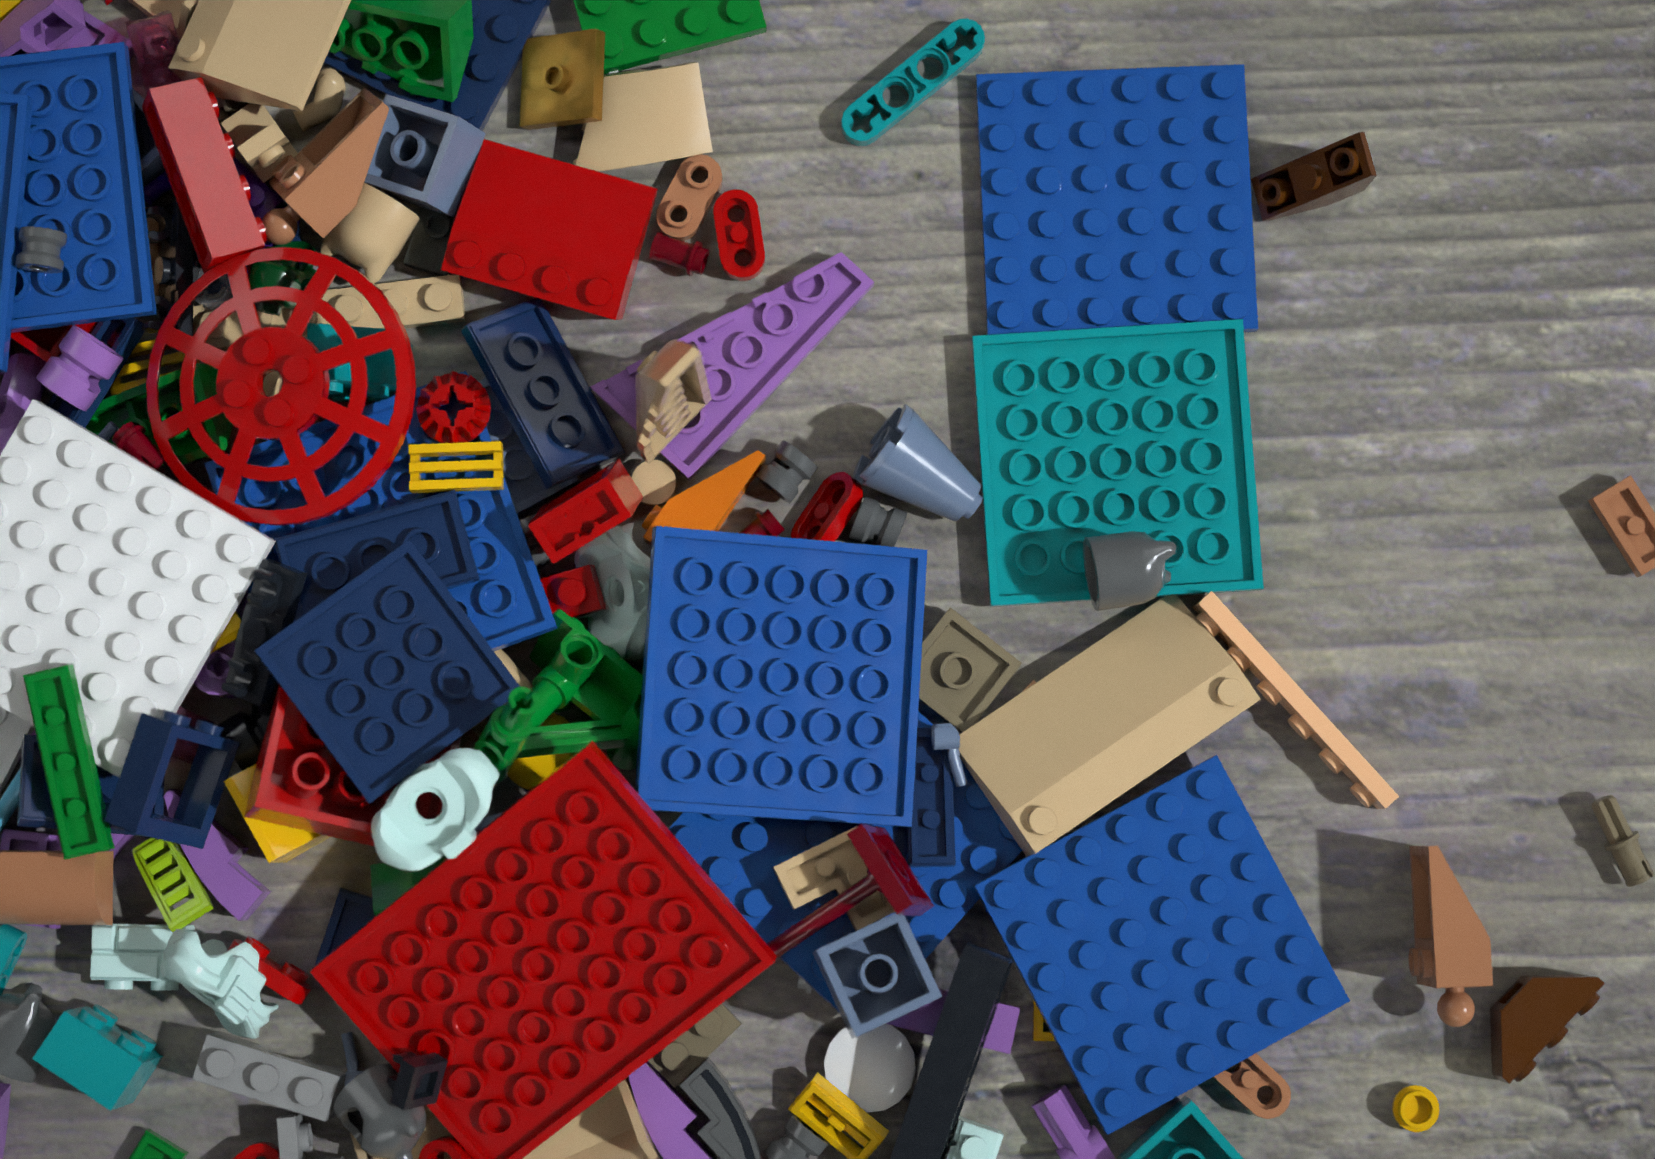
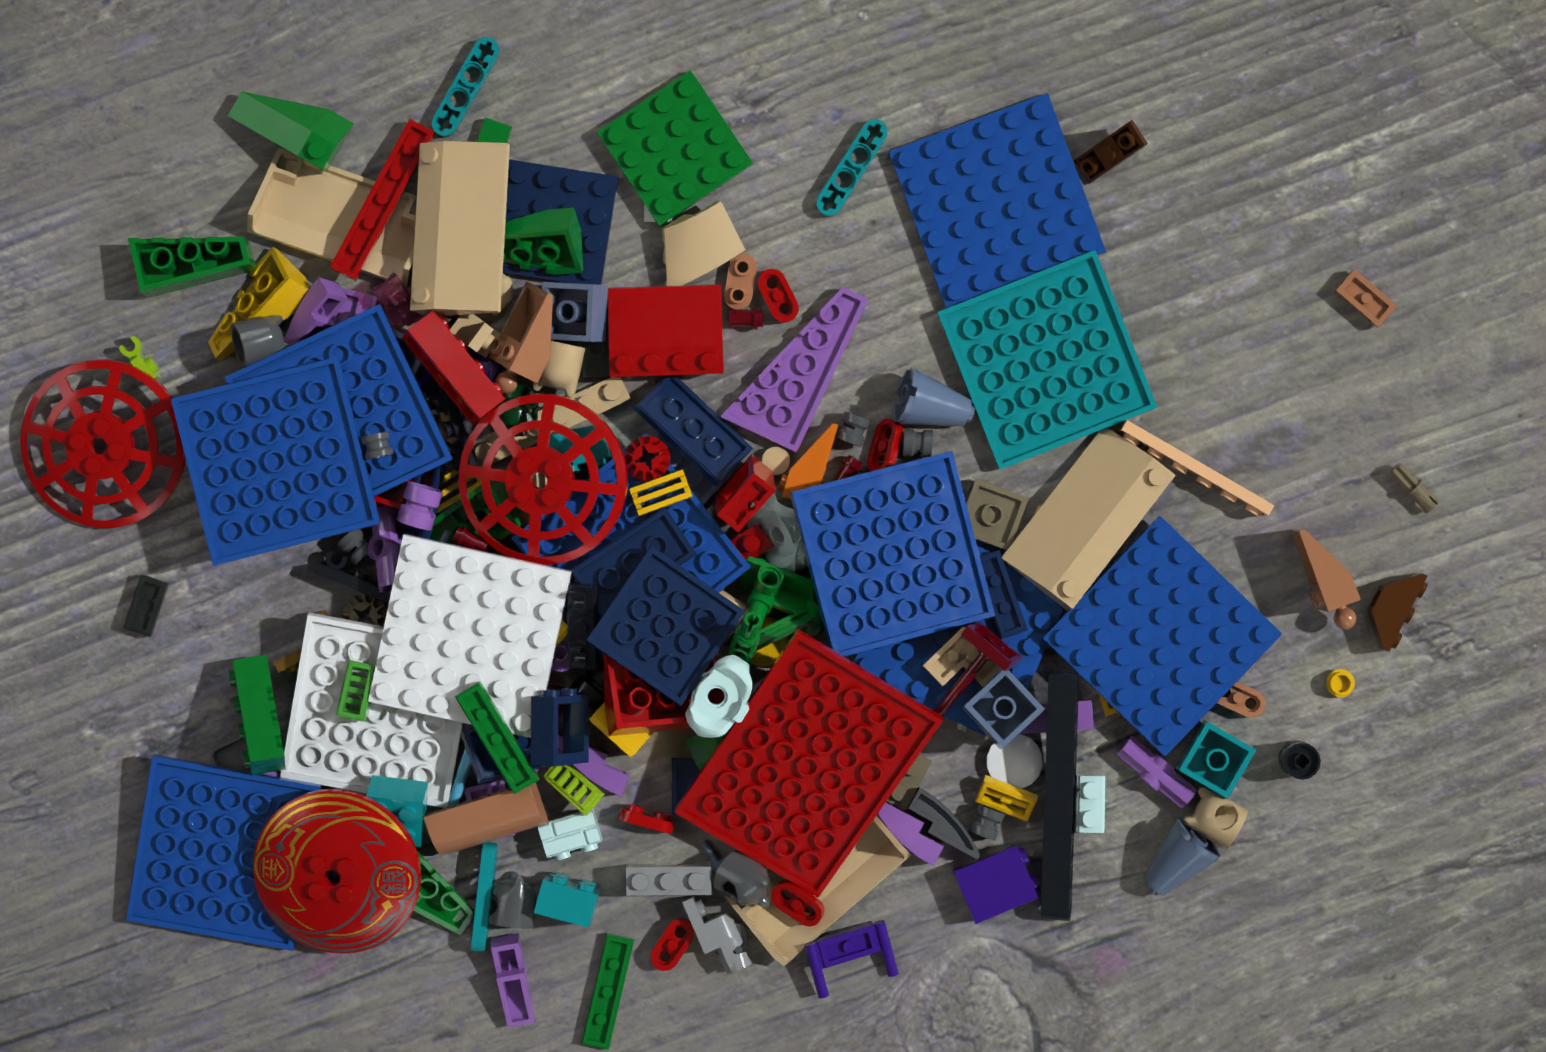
camera: 15 degrees left, 5 degrees up
(220, 979) = (626, 835): light aqua piece -> none
(417, 1079) = (758, 853): black tile -> none
(562, 79) = (642, 236): pearl gold plate -> none
(668, 395) = (770, 411): tan wedge -> none
(947, 737) = (999, 557): sand blue hand -> none
(1125, 568) = (1072, 424): dark grey piece -> none

